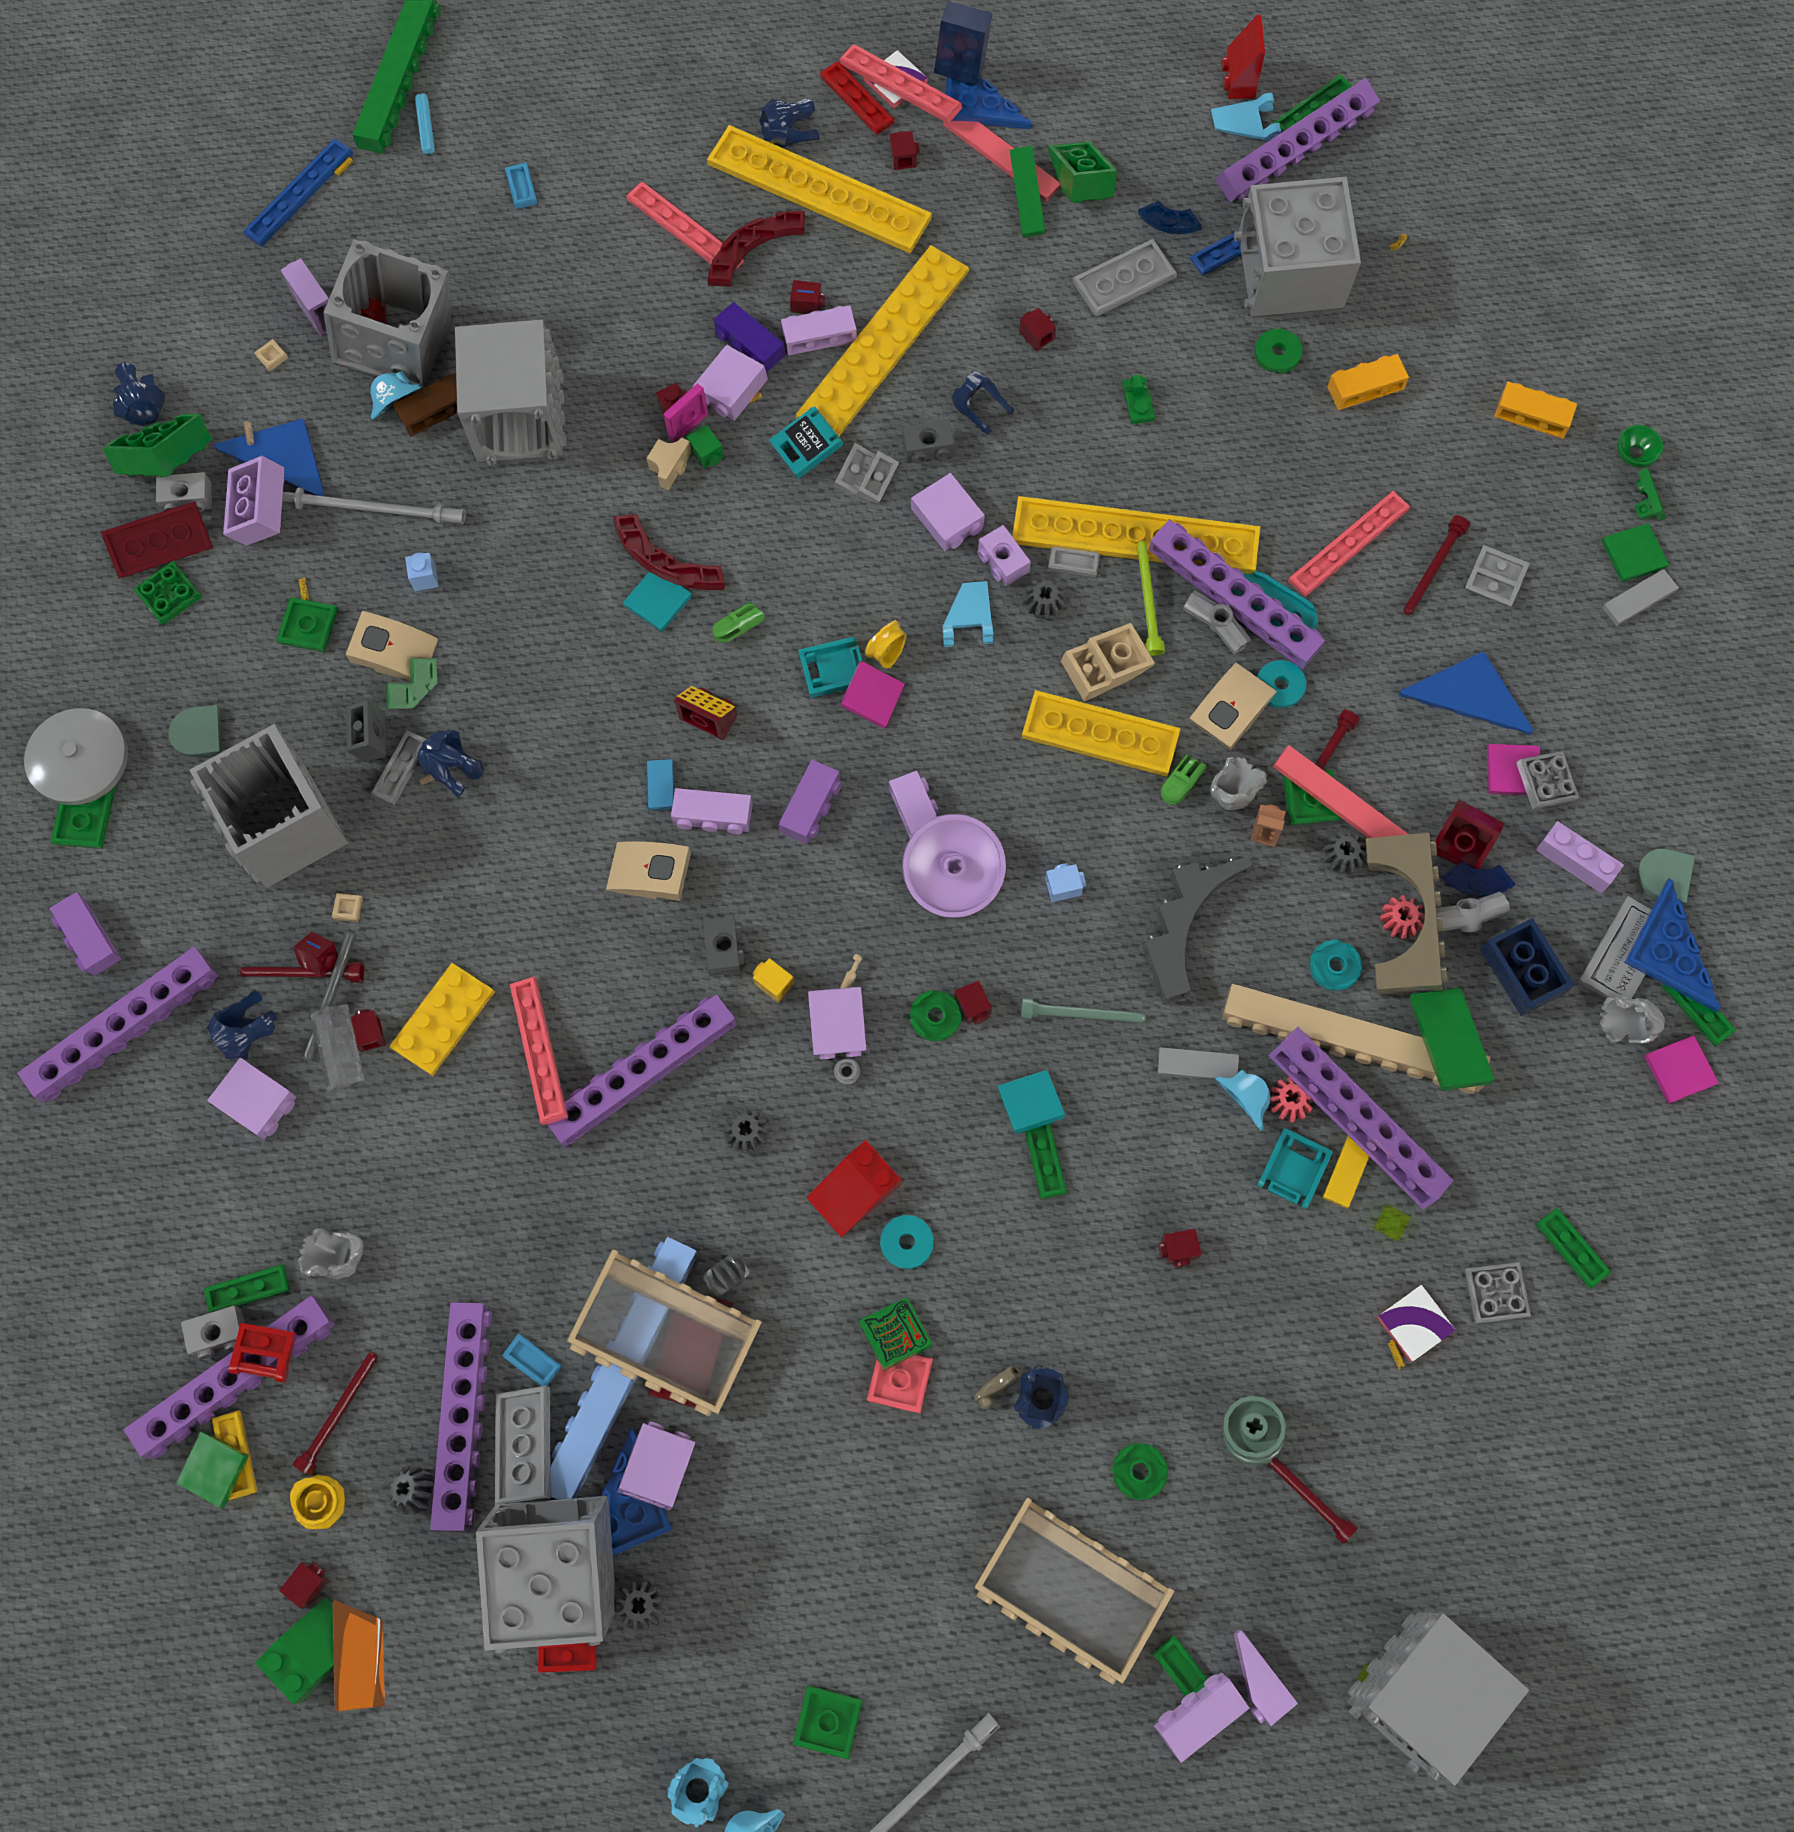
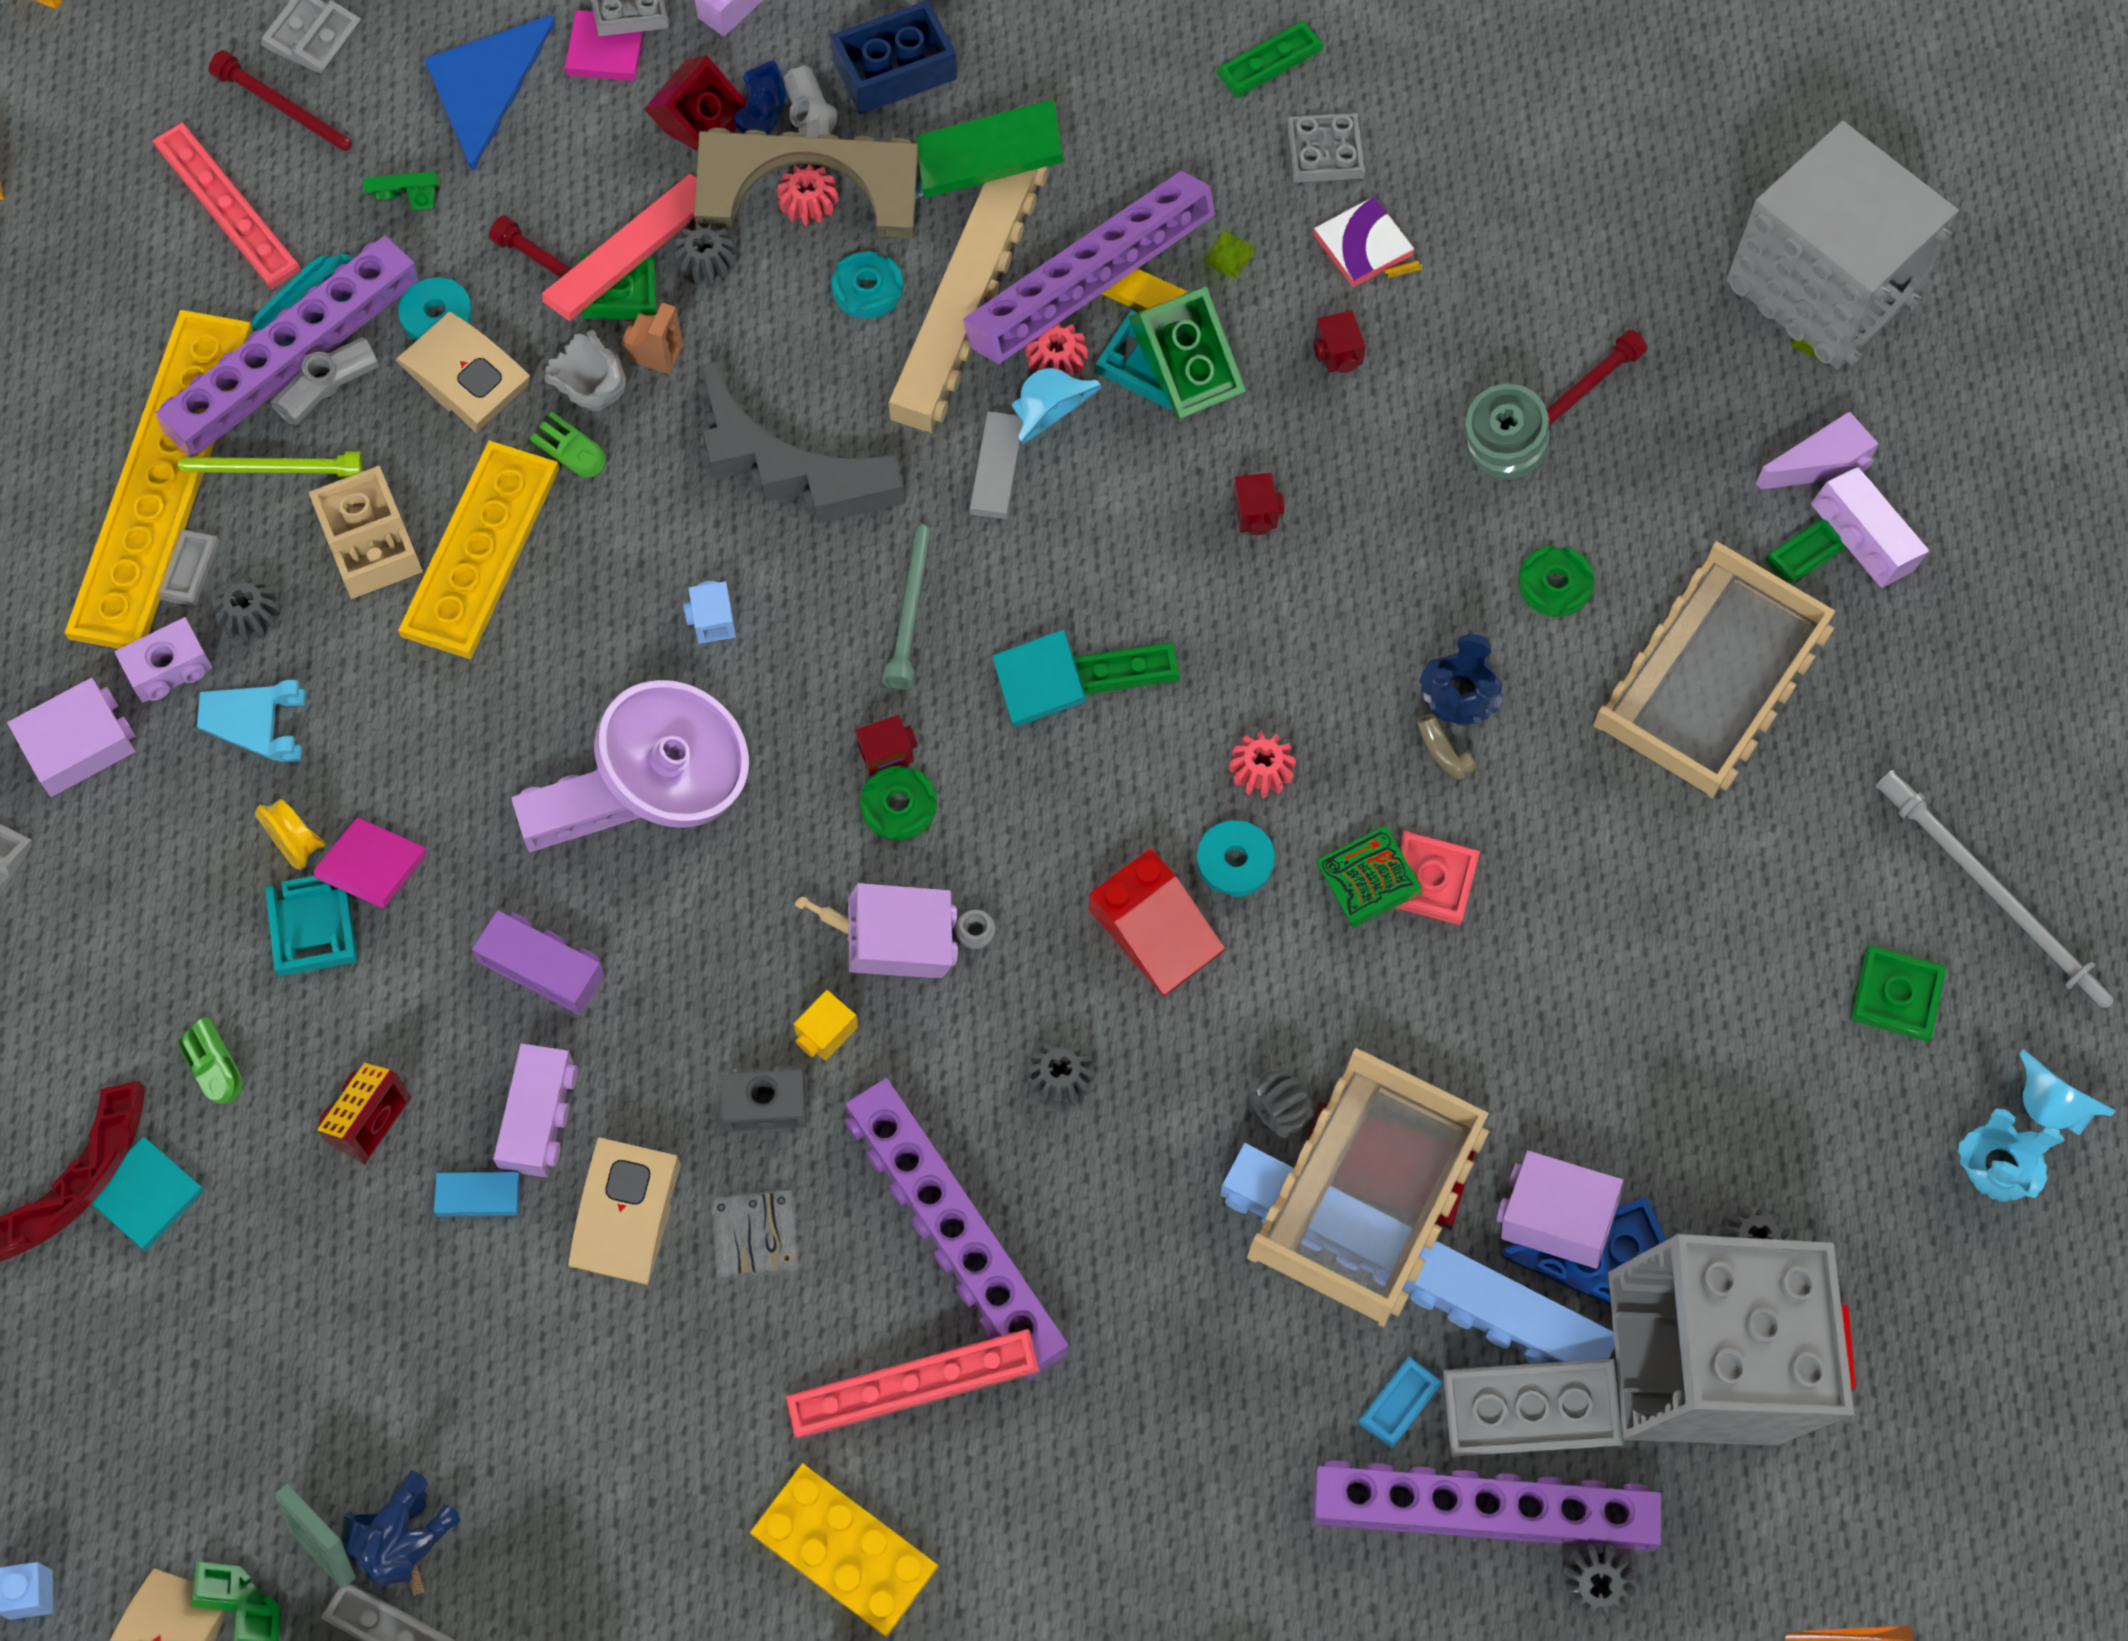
camera: 90 degrees left, 5 degrees down
(446, 714) = (315, 1536): none -> sand green tile
(637, 950) = (755, 1235): none -> clear tile
(985, 1258) = (1259, 775): none -> coral gear
(1295, 1190) = (1188, 352): none -> green slope
(1321, 1304) = (1339, 342): none -> dark red brick
(1377, 659) = (419, 187): none -> green hinge

